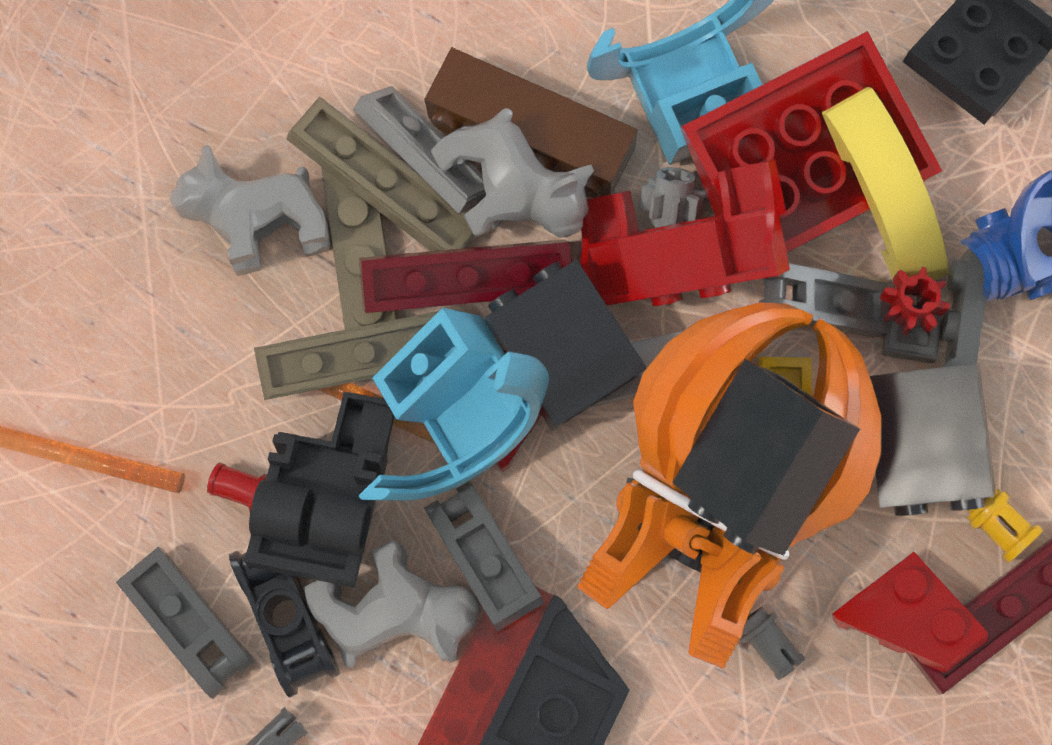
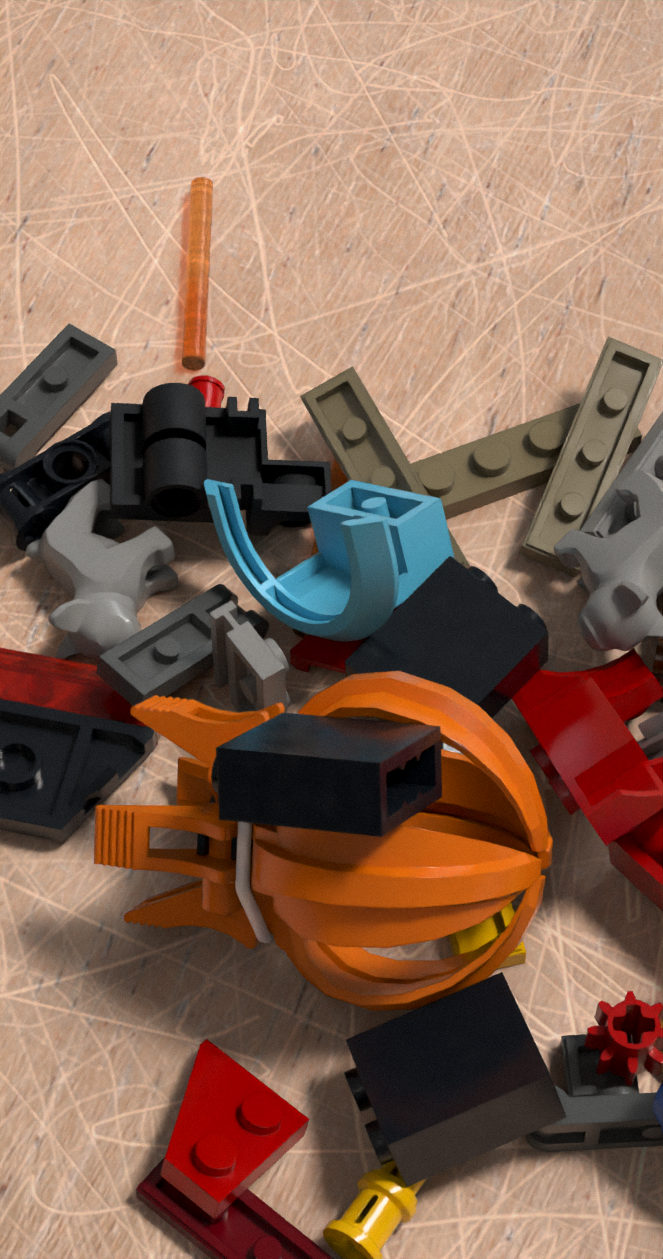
camera: 70 degrees right, 20 degrees down
(250, 209) = (514, 344): light grey animal -> none
(455, 274) = (501, 539): dark red plate -> none
(540, 501) = (247, 662): none -> light grey plate
(771, 643) = (156, 975): dark grey pin -> none
(837, 298) = (595, 927): dark grey plate -> none

